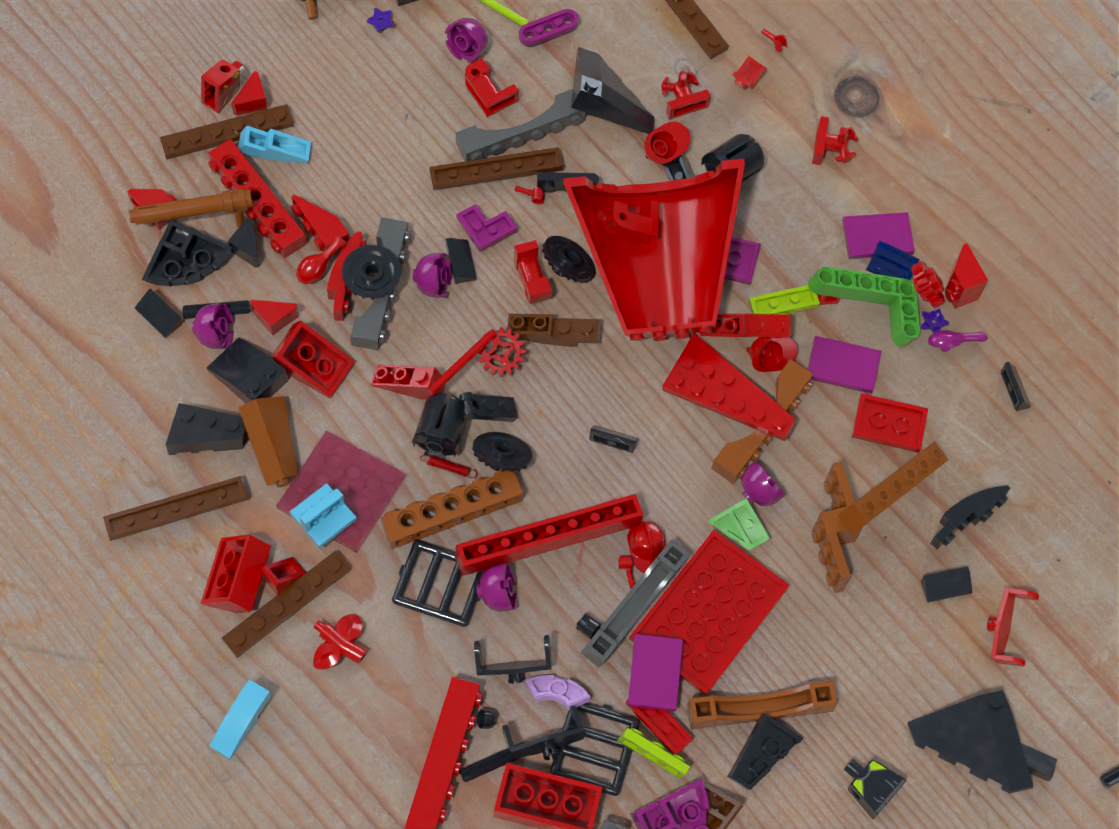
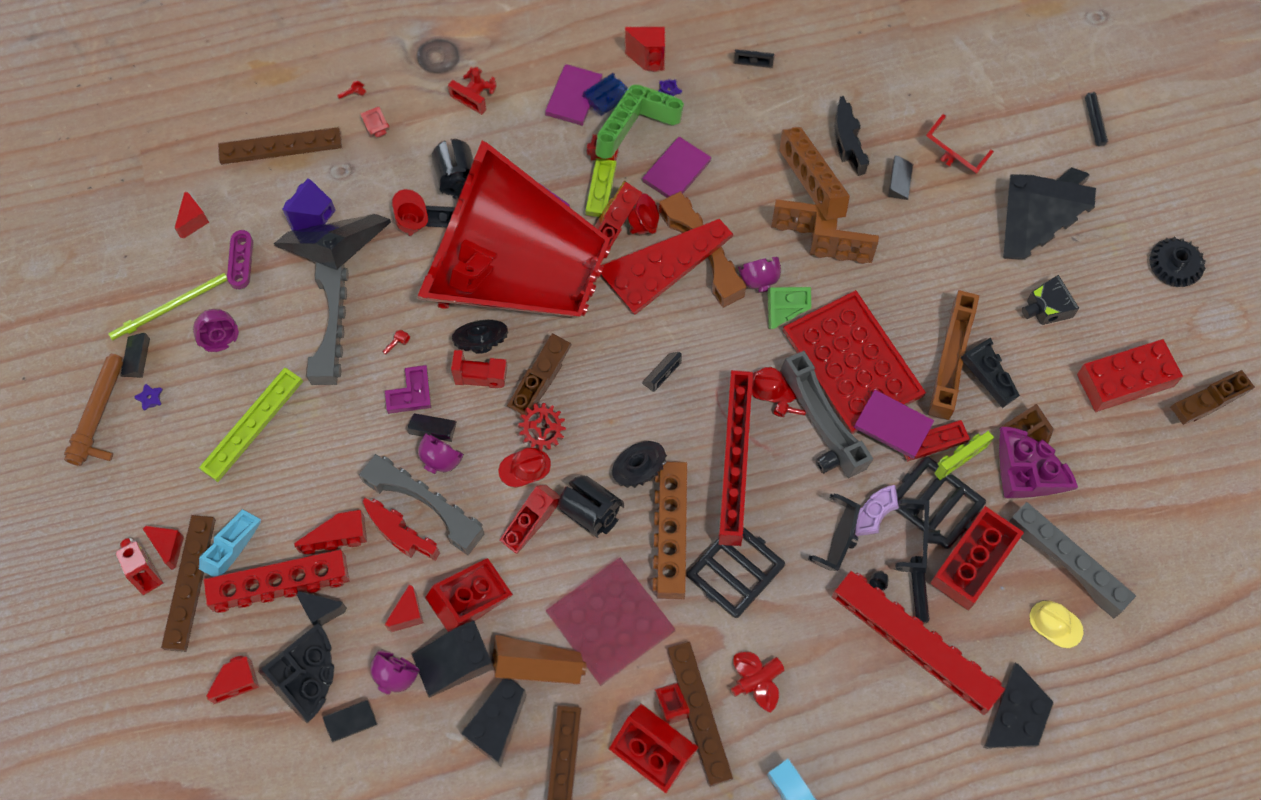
camera: 60 degrees left, 0 degrees up
(227, 202) = (272, 607): dark orange cylinder -> none
(235, 307) = (366, 681): black axle -> none
(314, 266) = (375, 555): red piece -> none
(323, 515) = (632, 643): medium azure bracket -> none
(371, 260) = (407, 491): black gear -> none
(393, 111) = (251, 424): none -> lime plate
(448, 466) = (627, 517): red piece -> none
(450, 349) = (524, 467): none -> red piece
(461, 362) = (542, 463): red bar -> none
(484, 90) = (275, 337): red piece -> none
(488, 407) = (592, 458): black plate -> none
(495, 168) = (356, 361): reddish brown plate -> none
(497, 588) = (766, 520): magenta cylinder -> none
(554, 181) = (403, 305): black plate -> none
(625, 56) = (308, 207): none -> dark purple slope
(685, 100) = (373, 181): red piece -> none
(890, 423) = (745, 157): red plate -> none
(928, 284) = (640, 74): red gear -> none
(948, 339) = (693, 83): magenta piece -> none

